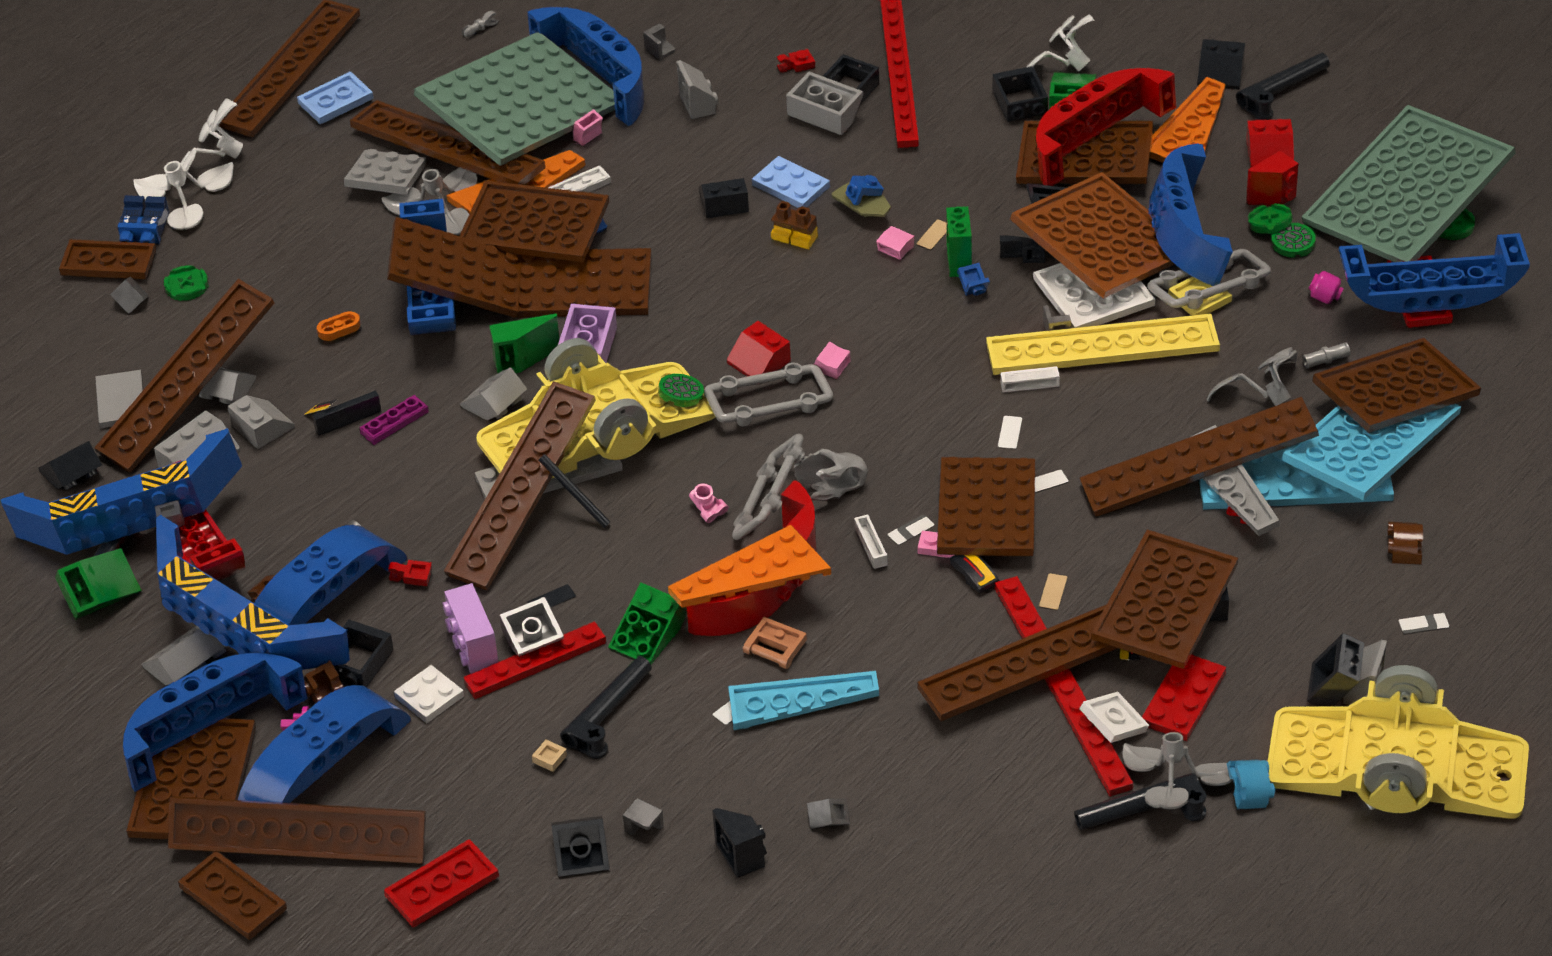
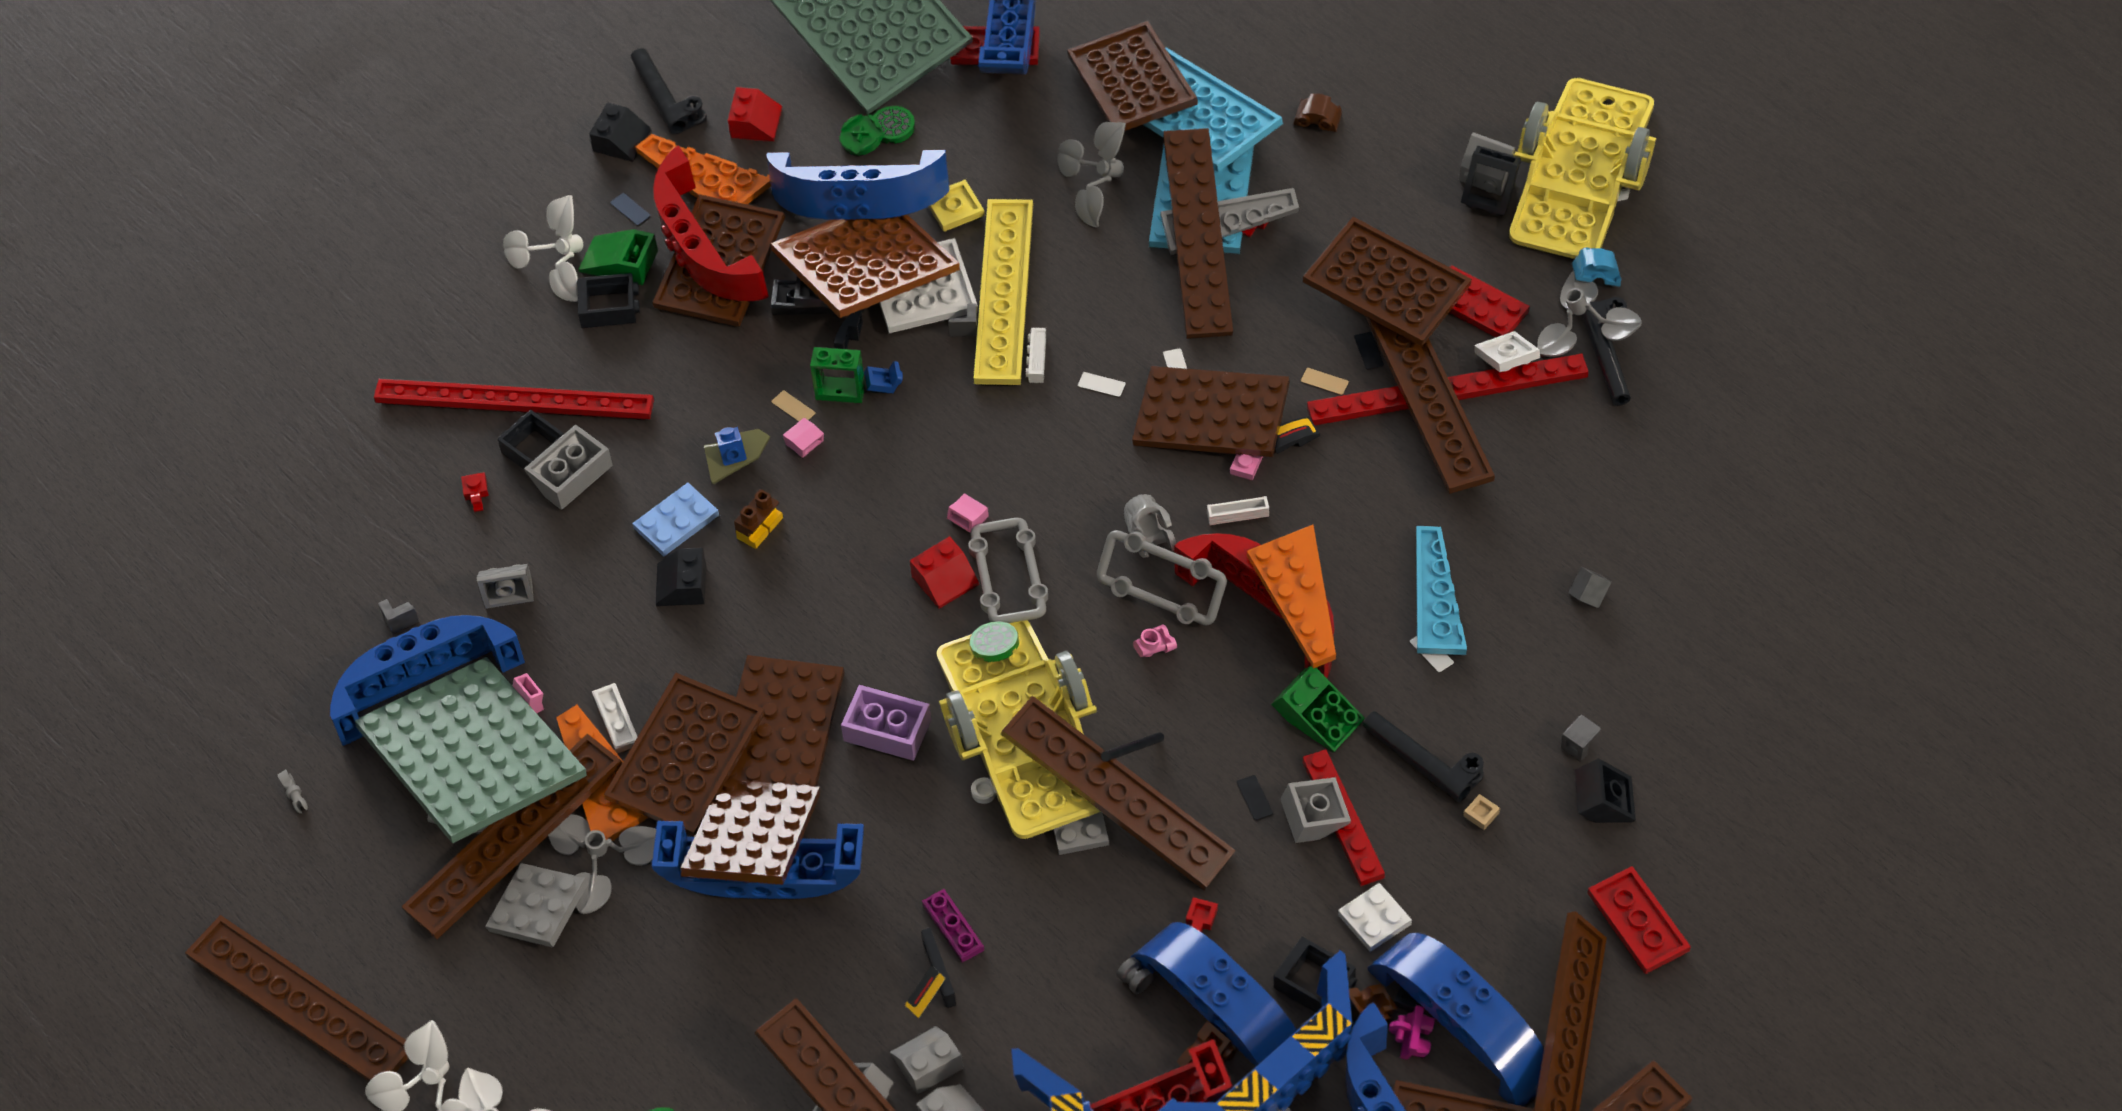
camera: 80 degrees left, 10 degrees up
(335, 97) = (377, 952): light blue plate -> none
(338, 326) = (790, 971): orange plate -> none
(470, 628) = (1307, 861): lavender brick -> none
(495, 395) = (945, 821): light grey slope -> none
(523, 342) = (883, 786): green slope -> none
(739, 841) = (1630, 655): black slope -> none
(777, 636) = (1353, 601): nougat plate -> none
(910, 529) = (1219, 481): white sticker -> none
(1194, 298) = (970, 202): light grey bar -> none
(1272, 180) = (818, 115): red slope -> none
(1325, 287) = (973, 109): dark pink head -> none
(1326, 355) = (1063, 124): light grey pin -> none
(1423, 623) = (1415, 123): white sticker -> none

